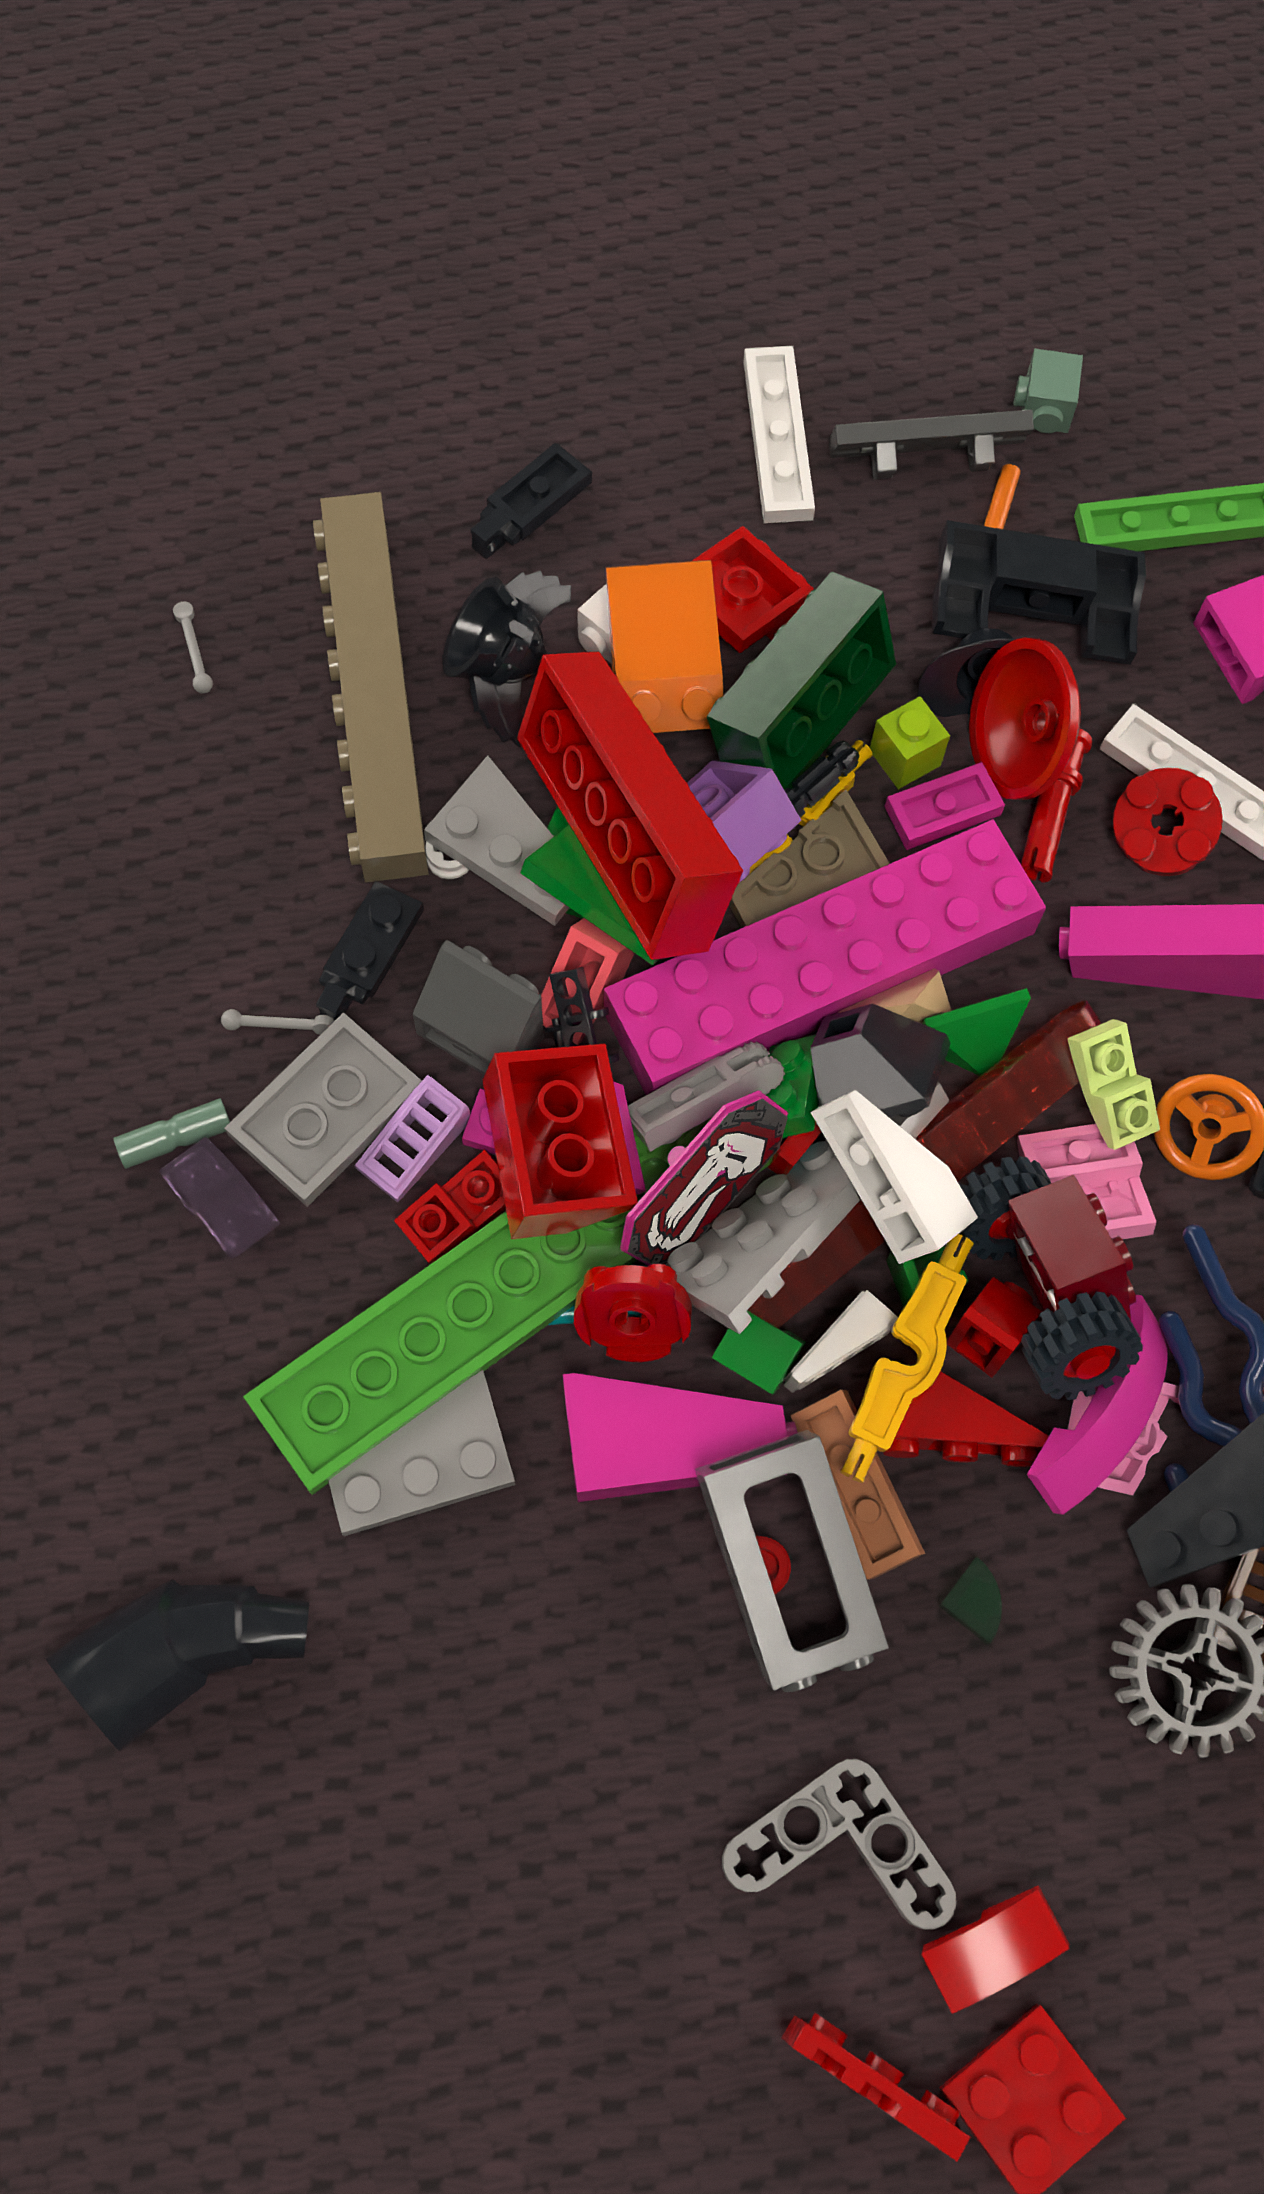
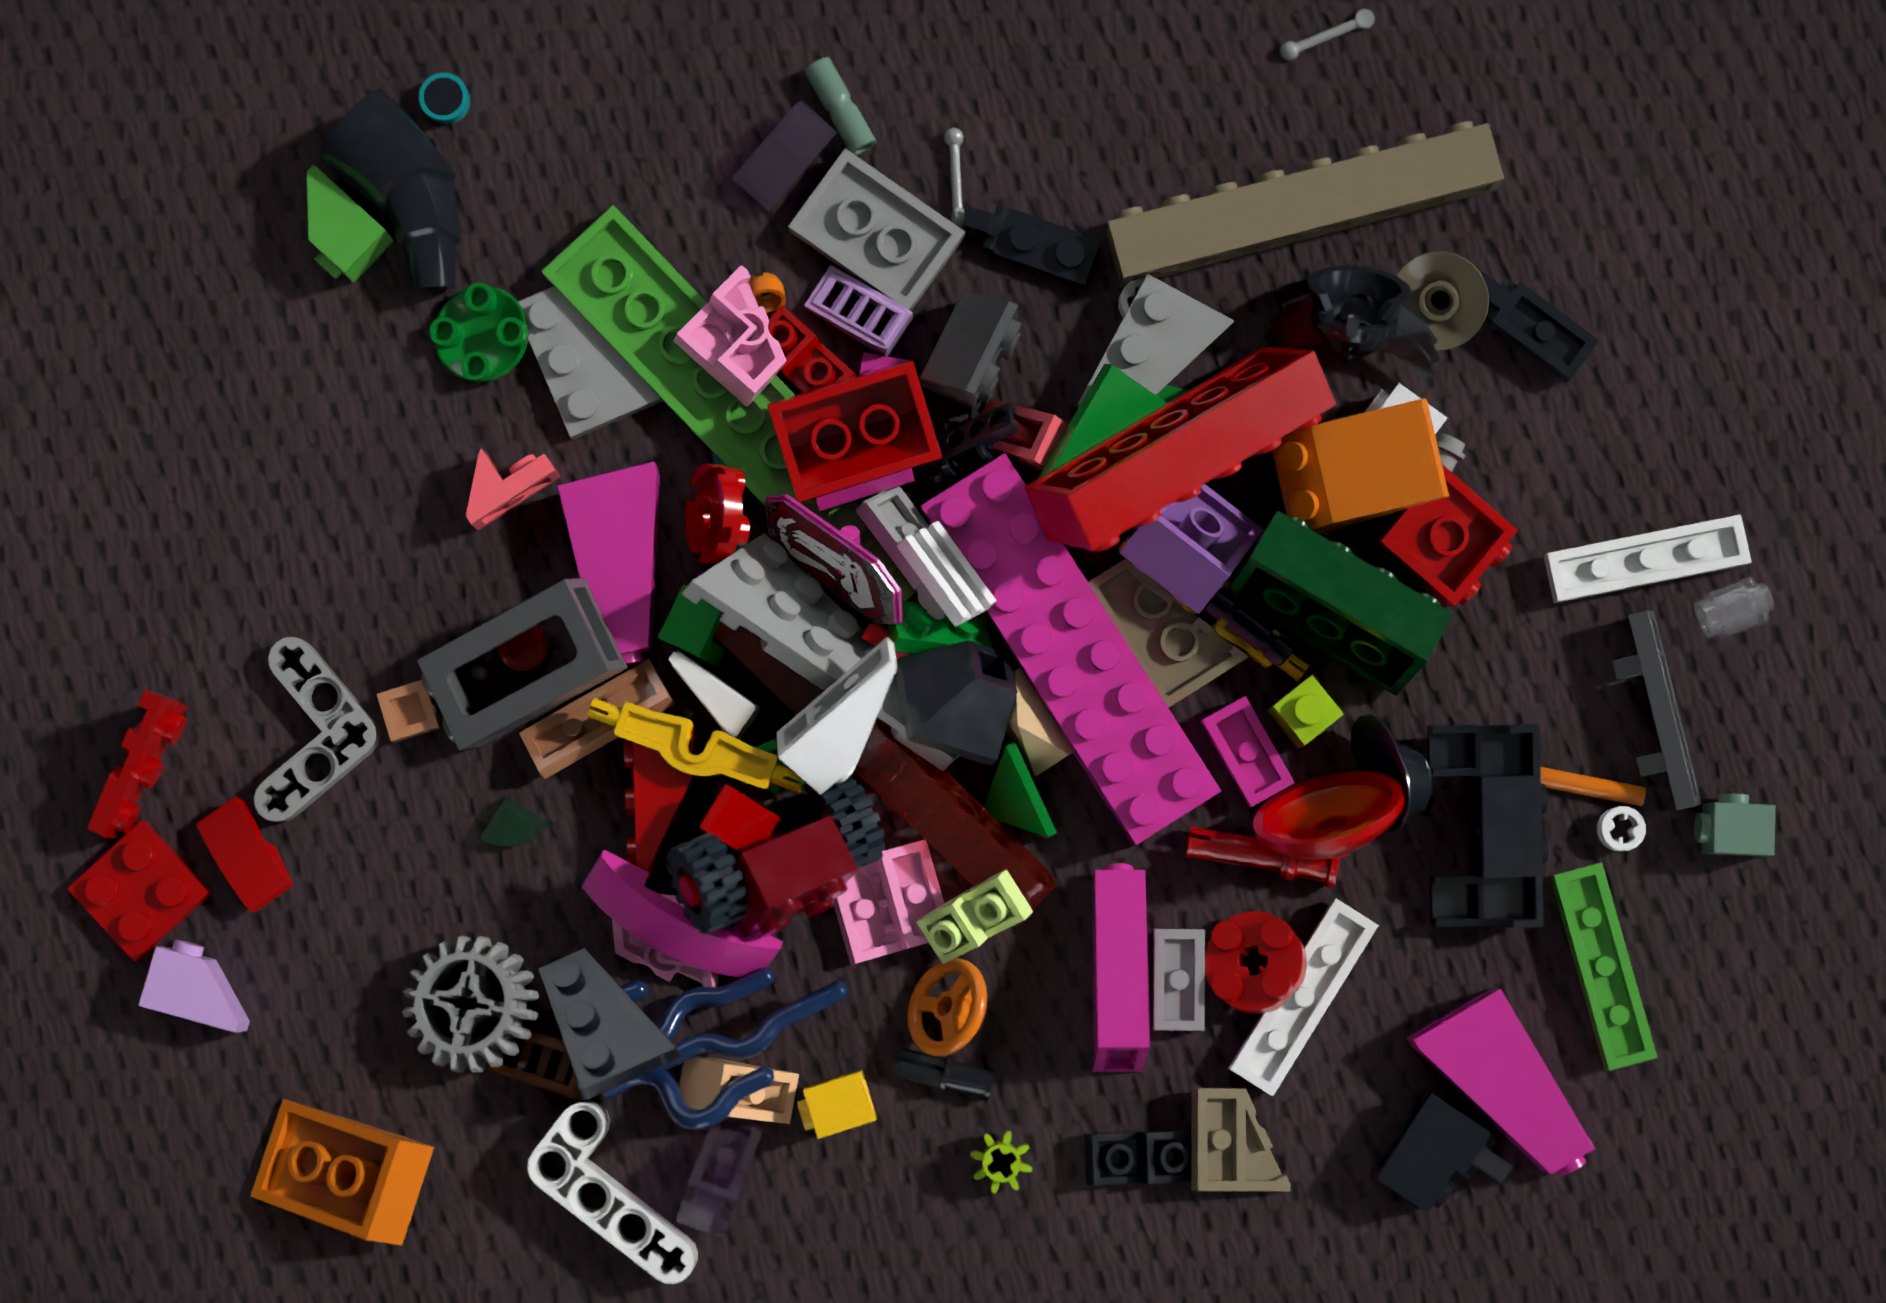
camera: 85 degrees right, 15 degrees up
(69, 1594) = (444, 98): none -> tile
(210, 1738) = (341, 229): none -> bright green slope
(371, 1577) = (480, 333): none -> green dish
(377, 1238) = (768, 283): none -> orange hinge
(431, 1269) = (734, 339): none -> bright pink slope
(490, 546) = (1466, 290): none -> dark tan dish
(573, 1578) = (494, 496): none -> coral slope
(737, 1055) = (951, 570): none -> white tile
(829, 1715) = (408, 711): none -> nougat plate
(835, 368) = (1734, 608): none -> clear brick
(1038, 502) = (1606, 824): none -> white bush
(1166, 2037) = (192, 988): none -> lavender slope
(1177, 887) = (1178, 979): none -> light grey plate

